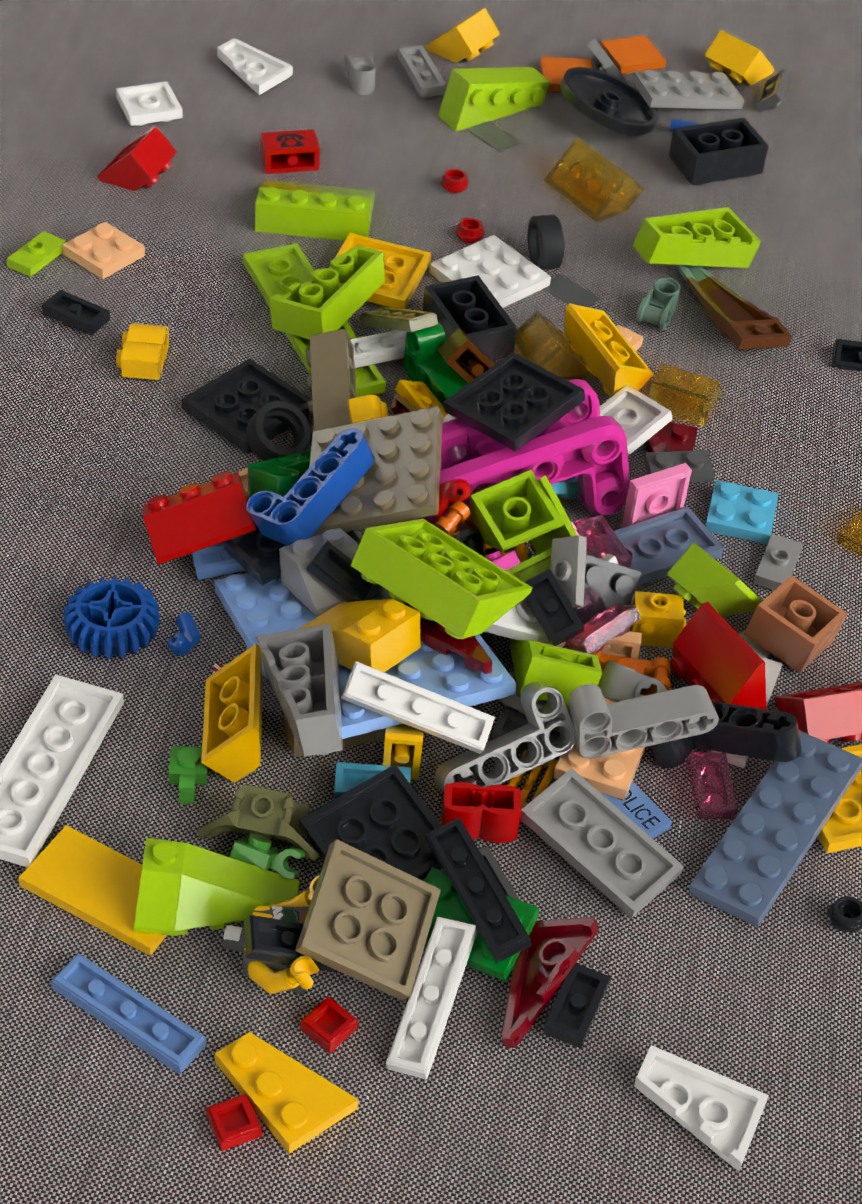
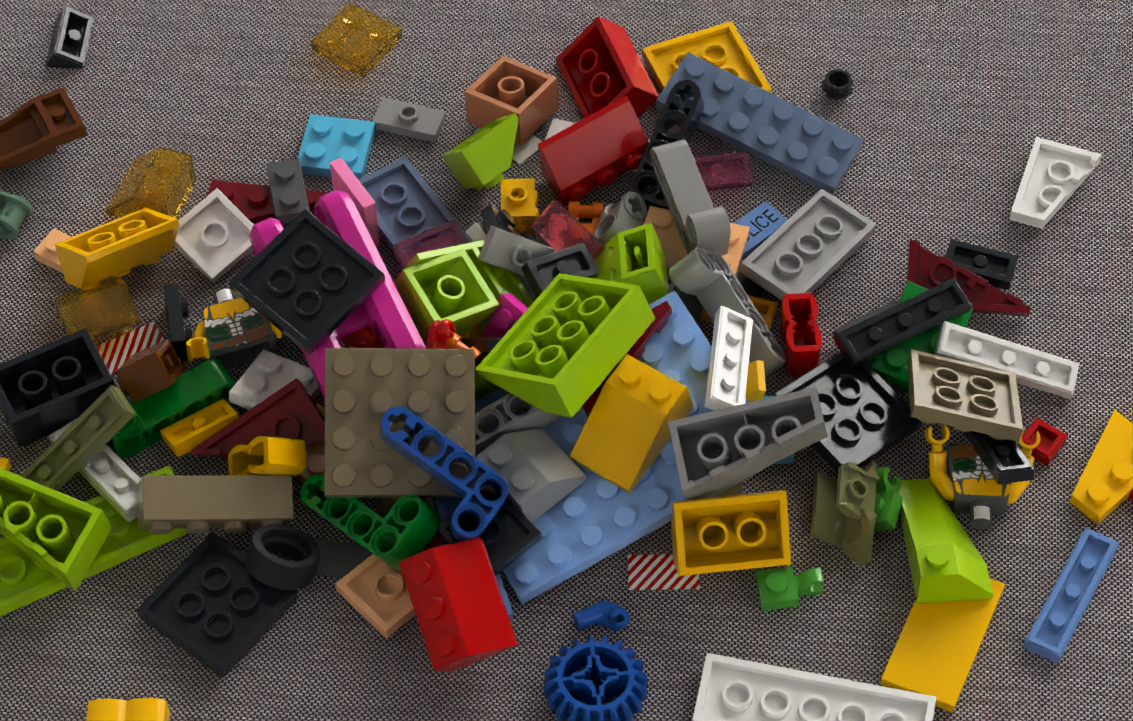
camera: 90 degrees left, 10 degrees up
(334, 571) = (551, 444): black tile -> none

